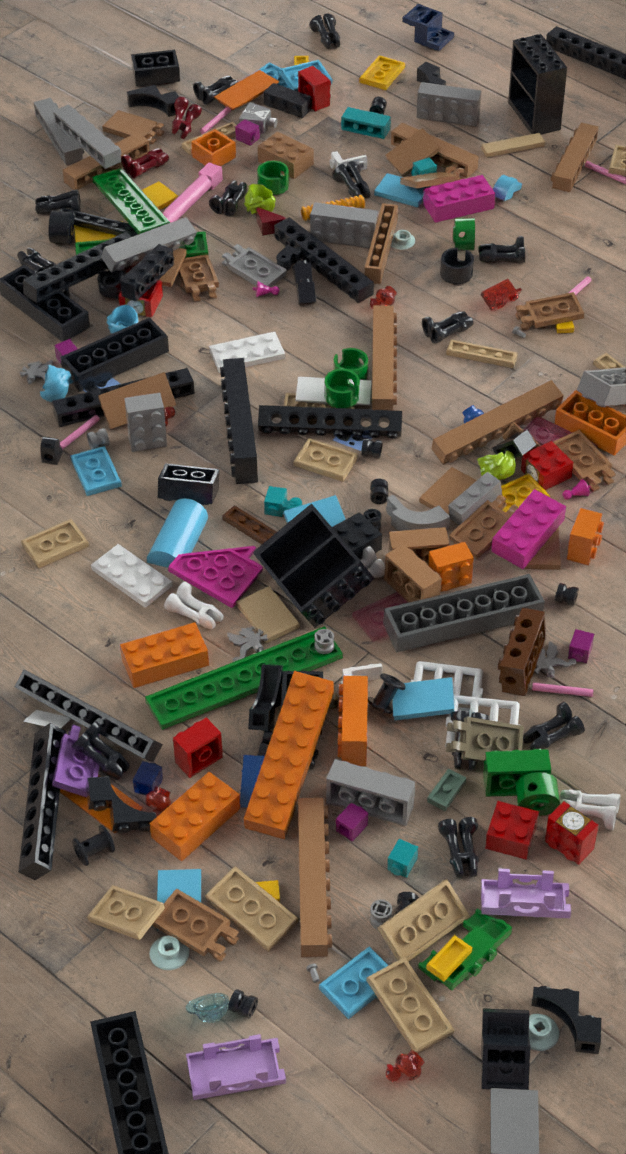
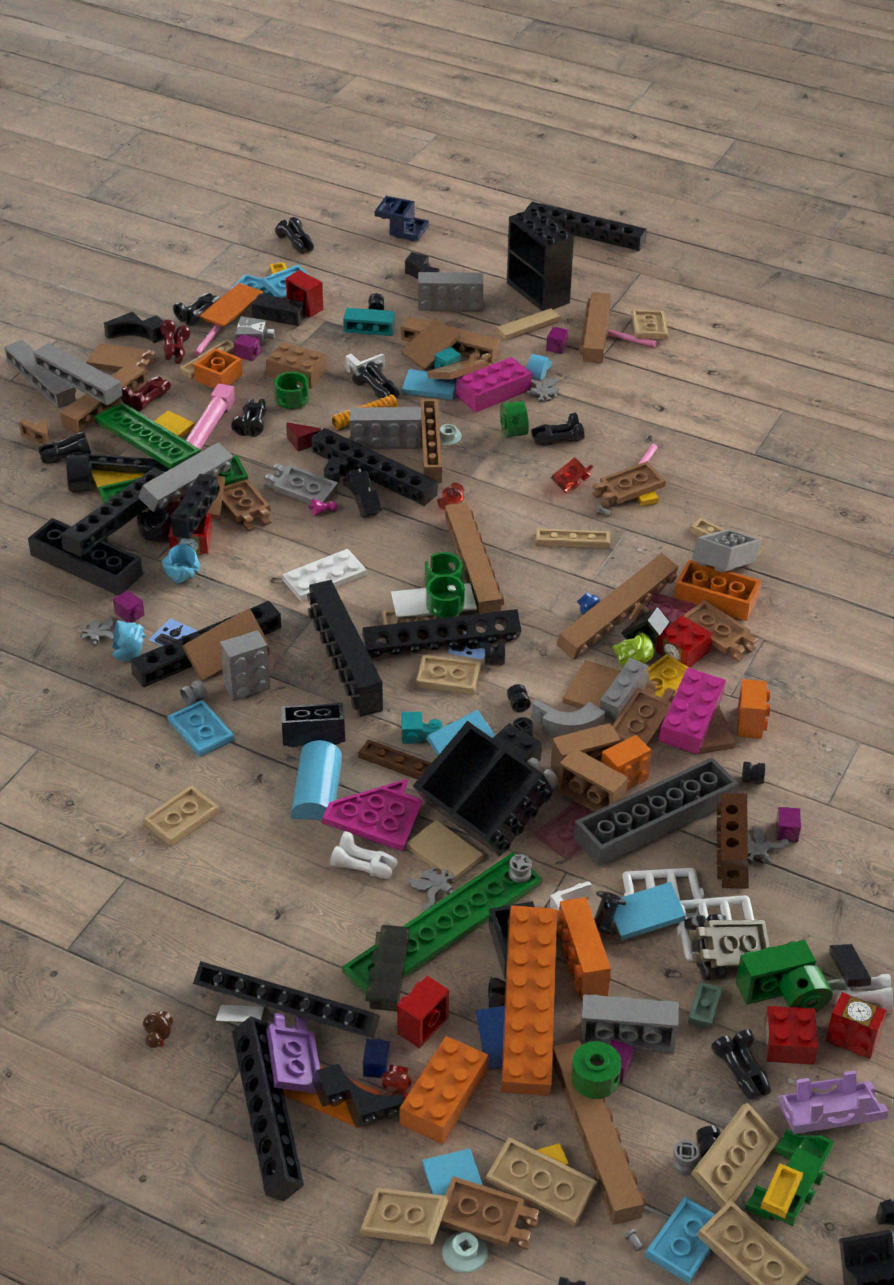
camera: 15 degrees left, 5 degrees down
(32, 259) = (59, 512): black piece -> none
(39, 185) = (36, 433): none -> medium nougat slope
(52, 447) = (145, 709): black leg -> none
(73, 436) = (167, 689): bright pink bar -> none
(93, 845) = (341, 1146): black hose -> none
(113, 765) = (304, 1033): black piece -> none
(115, 353) = (183, 598): black brick -> none
(131, 575) = (279, 835): white plate -> none
(155, 67) = (126, 294): black brick -> none
(164, 655) = (347, 916): orange brick -> none
(181, 704) = (389, 967): none -> clear smoke brick
(259, 197) = (283, 412): lime hair -> none
(267, 699) = (480, 941): black arch -> none
(322, 834) = (592, 1080): none -> green piece
(382, 72) = (367, 269): yellow tile -> none
(402, 858) = (686, 1090): teal brick -> none
(438, 331) = (519, 523): black piece -> none
(456, 270) = (514, 457): black piece -> none
(505, 210) = (544, 389): none -> light grey piece
(533, 164) = (557, 340): none -> magenta brick
(538, 733) = (798, 900): black piece -> none
(562, 689) = (783, 874): bright pink bar -> none
(580, 489) = (726, 660): dark pink piece -> none
(587, 780) = (850, 965): none -> black tile

